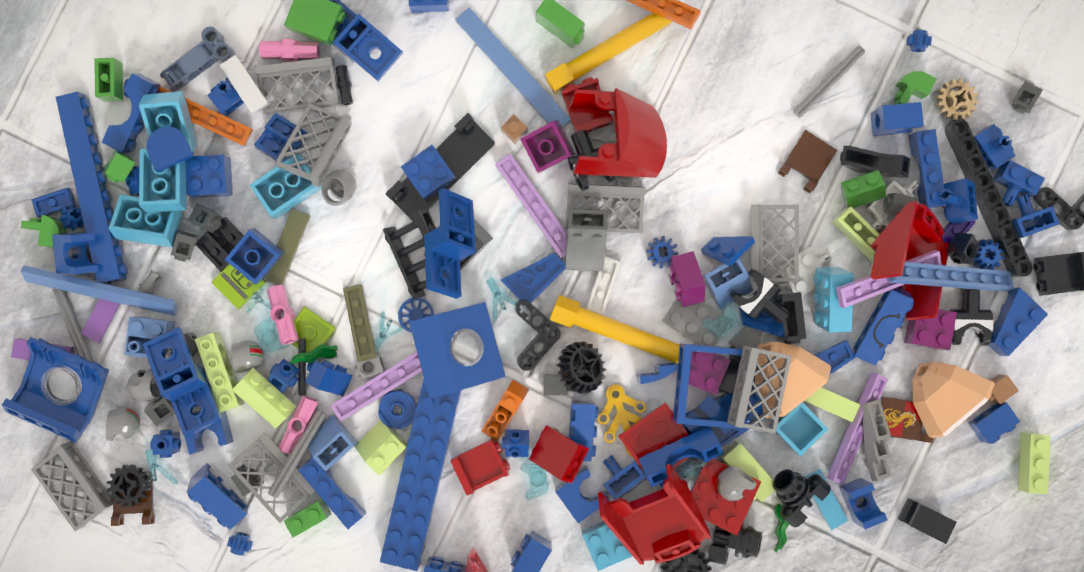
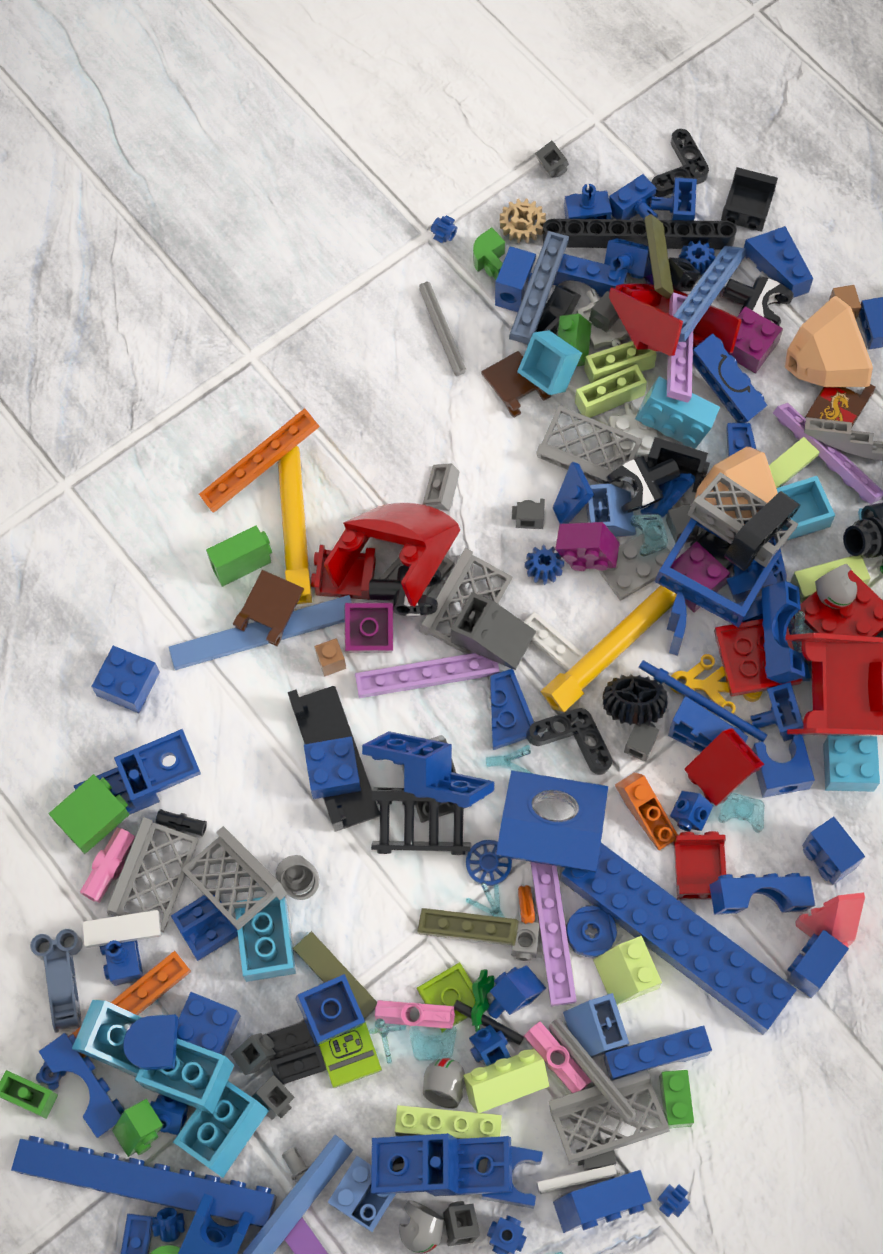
camera: 60 degrees left, 20 degrees down
(222, 470) = (576, 1179): none -> white tile
(394, 356) = (526, 904): none -> orange axle
(463, 502) = (790, 892): none -> blue arch
(532, 65) = (270, 604): none -> reddish brown flag
(610, 379) = (663, 676): none -> blue bar
(692, 145) = (441, 486): none -> light grey slope
(698, 222) = (529, 514): none -> dark grey brick
(753, 410) = (761, 529): none -> black beam
(831, 181) = (549, 362): none -> medium azure piece
(831, 238) = (610, 391): none -> yellowish green brick
(895, 142) = (539, 287): none -> sand blue tile
(969, 225) = (659, 256): none -> olive tile

